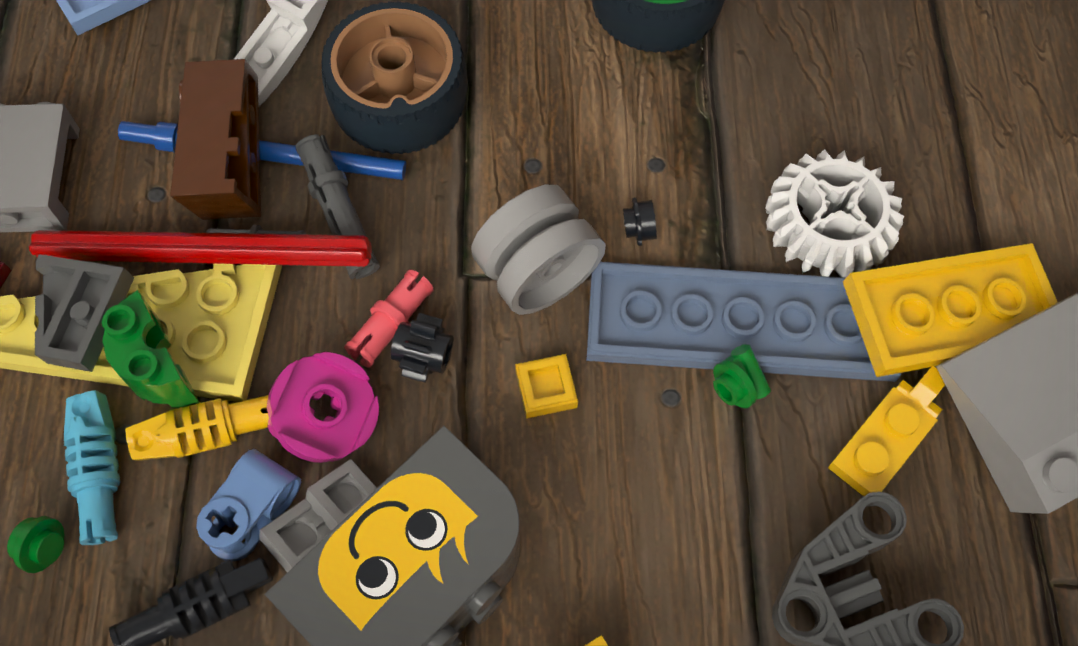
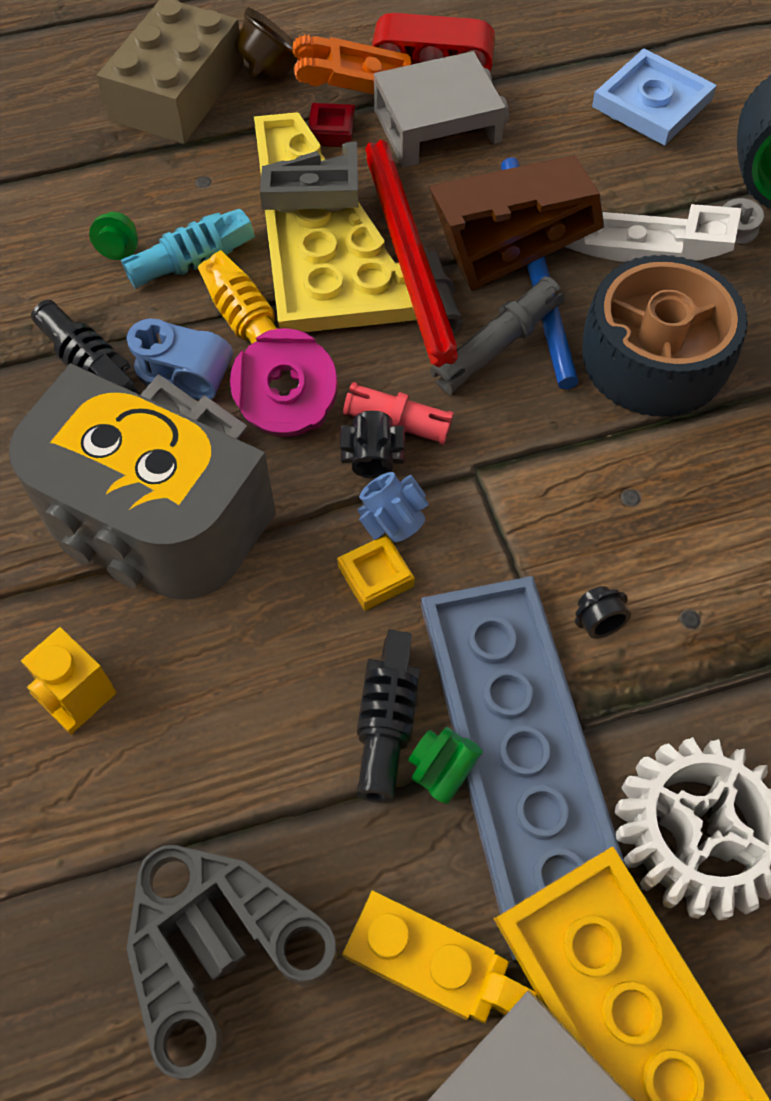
camera: 75 degrees right, 5 degrees down
(139, 353) = (286, 226): green cylinder -> none
(496, 348) = (392, 507): none -> medium blue gear
(537, 249) = (510, 504): light grey wheel -> none
(686, 410) = (386, 717): none -> black hinge

